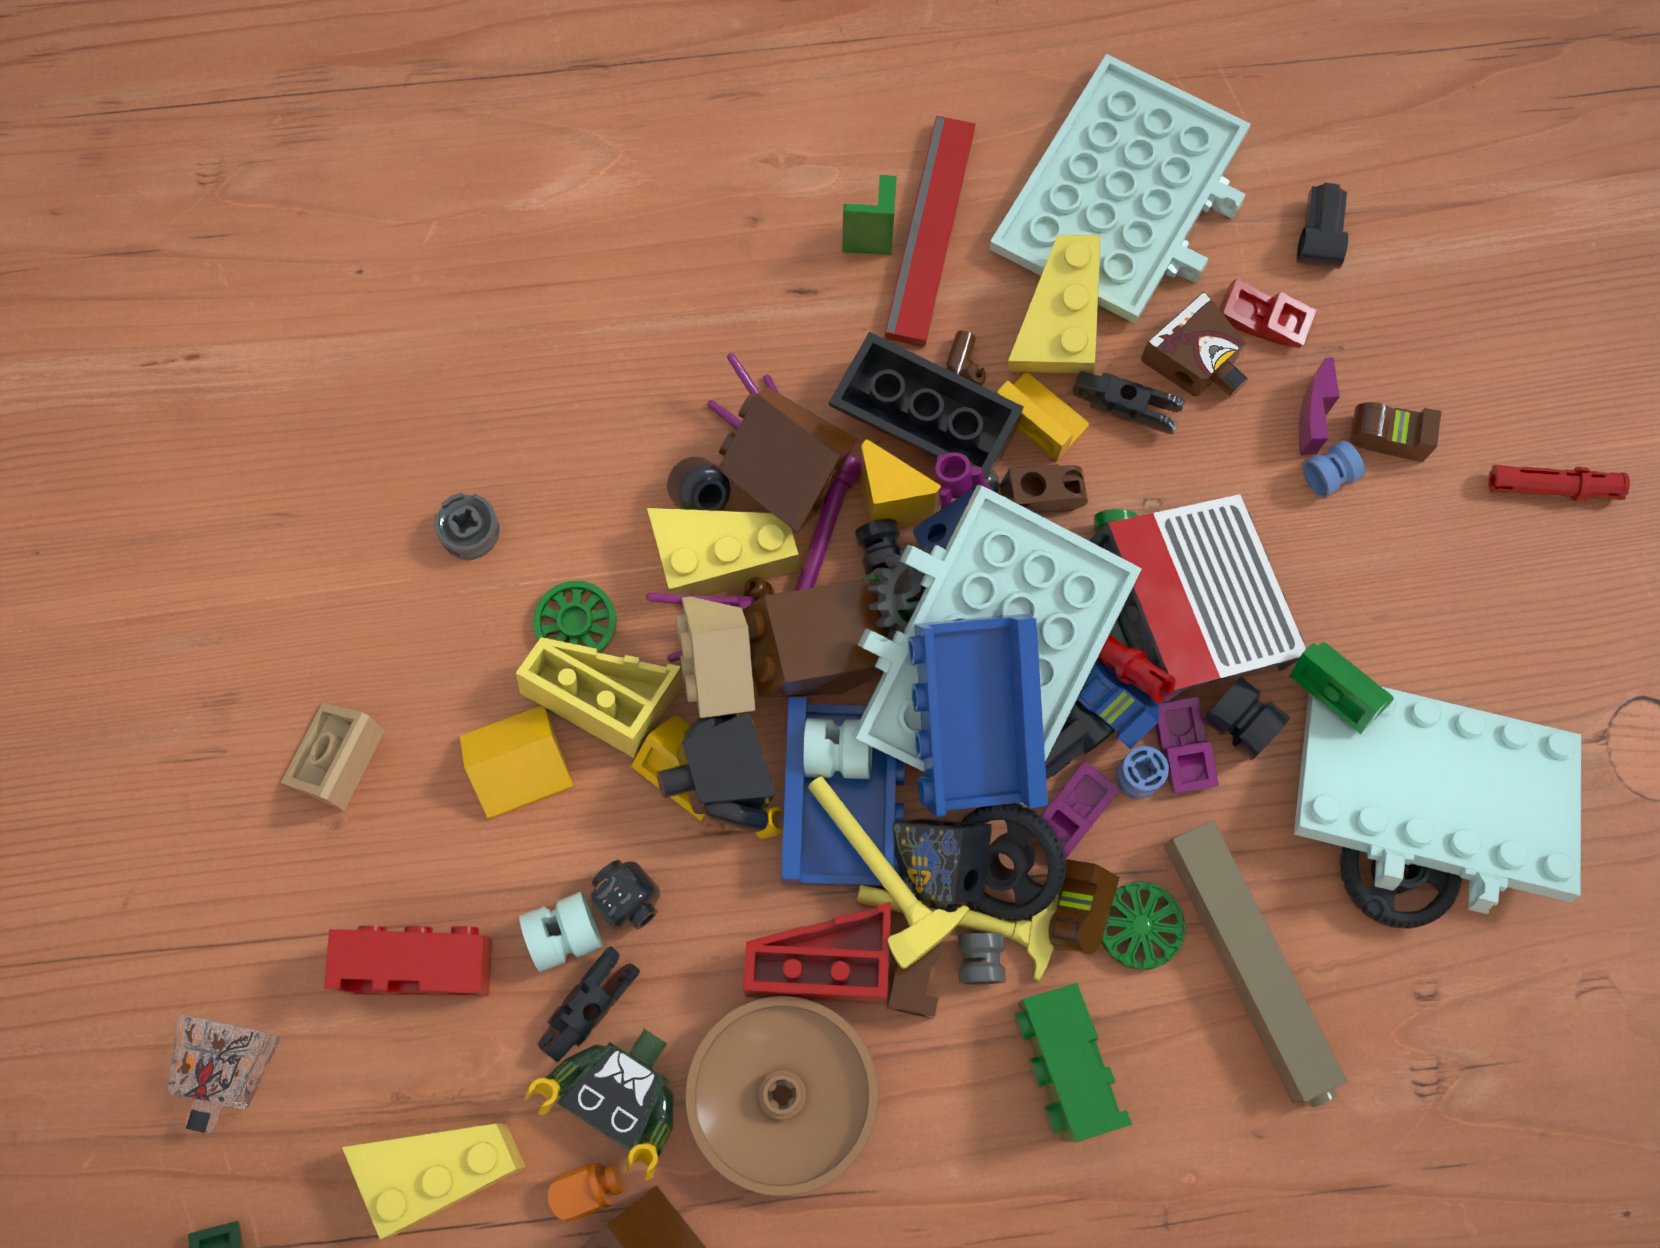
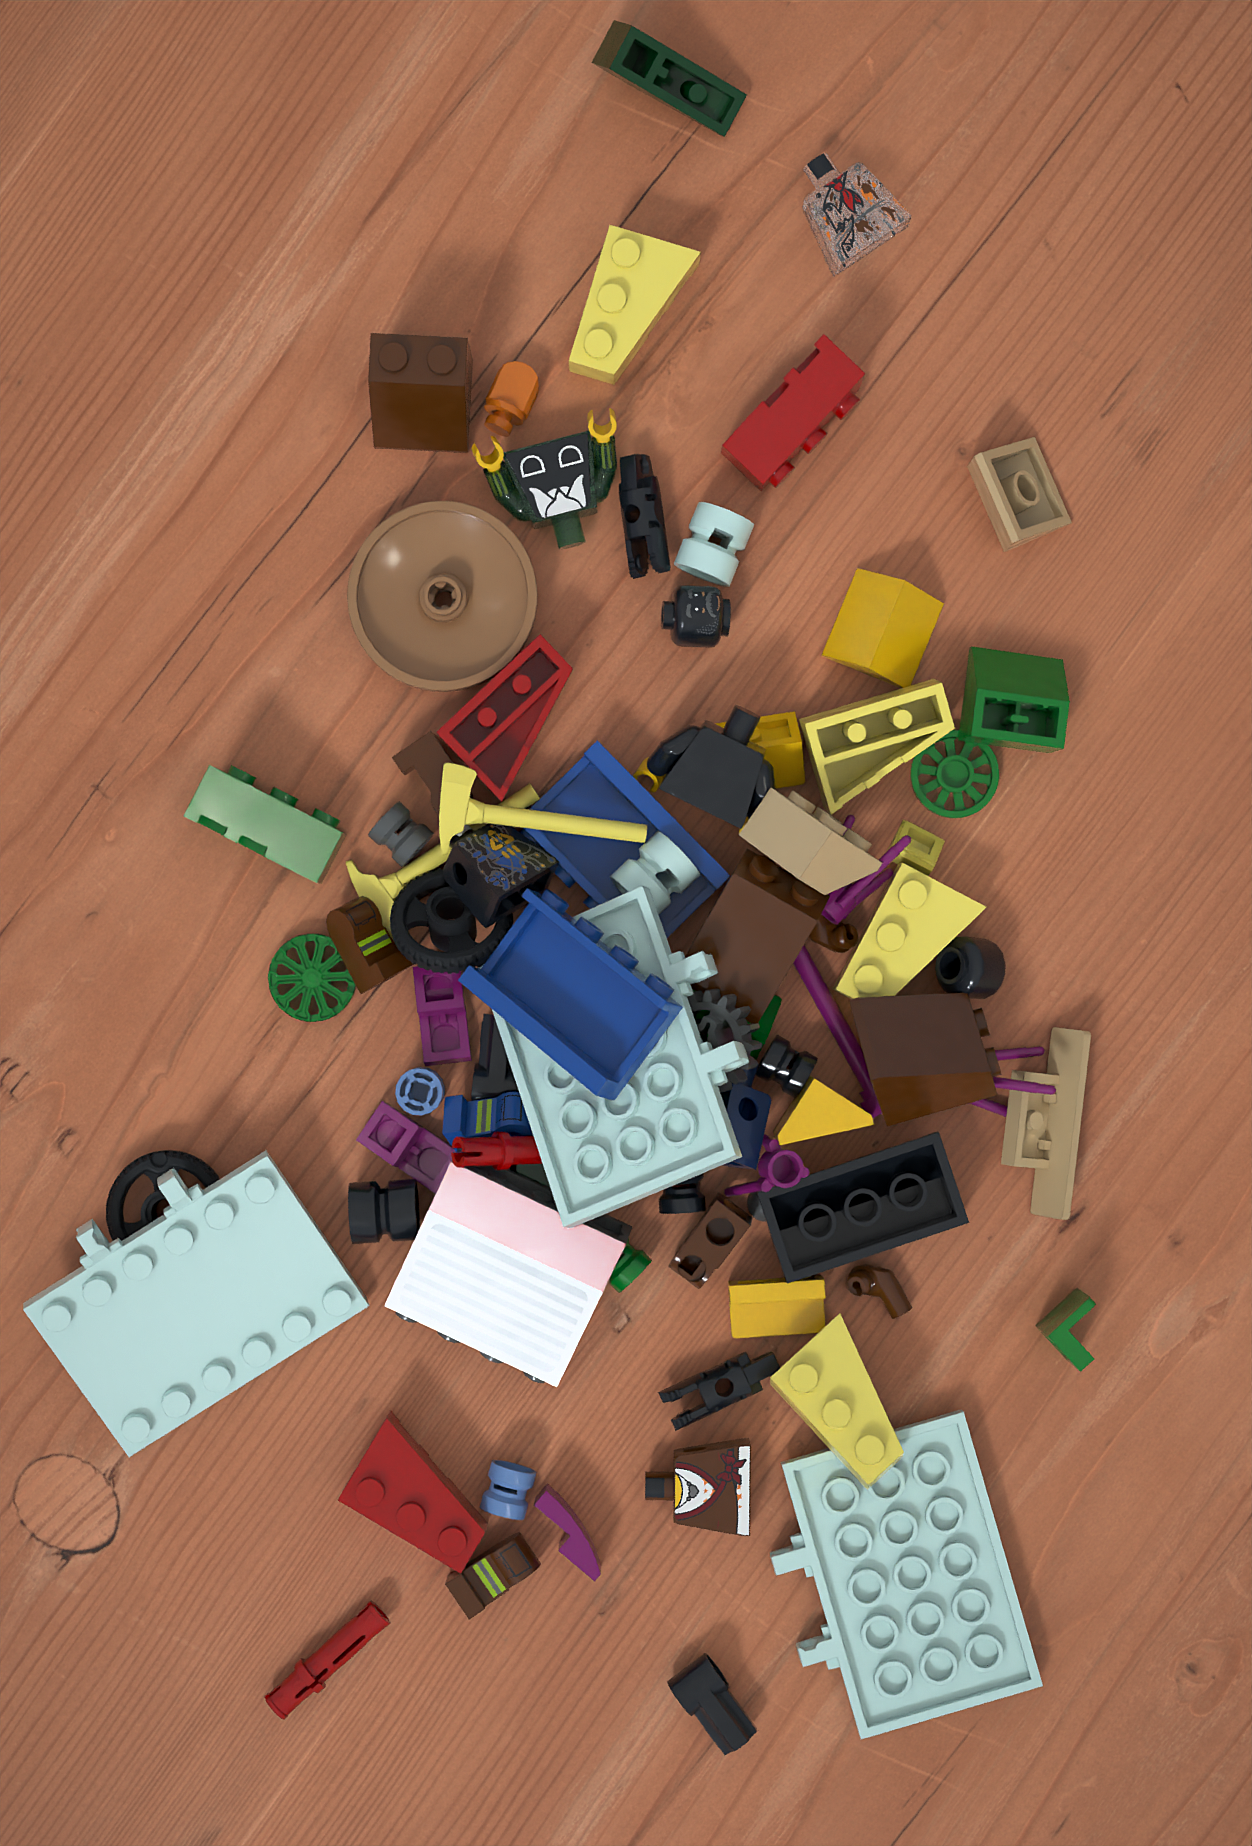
camera: 130 degrees right, 15 degrees up
(467, 526) = (1114, 759): dark grey wheel -> none
(484, 621) = (1014, 701): none -> green slope
(648, 612) = (923, 849): none -> light yellow slope
(763, 345) = (1046, 1128): none -> tan bracket
(930, 231) = (1025, 1378): red tile -> none
(1256, 966) = (207, 1031): dark tan brick -> none
(1267, 317) = (686, 1577): slope -> none
(1340, 686) = (337, 1307): green panel -> none
(1405, 522) = (413, 1498): none -> red wedge

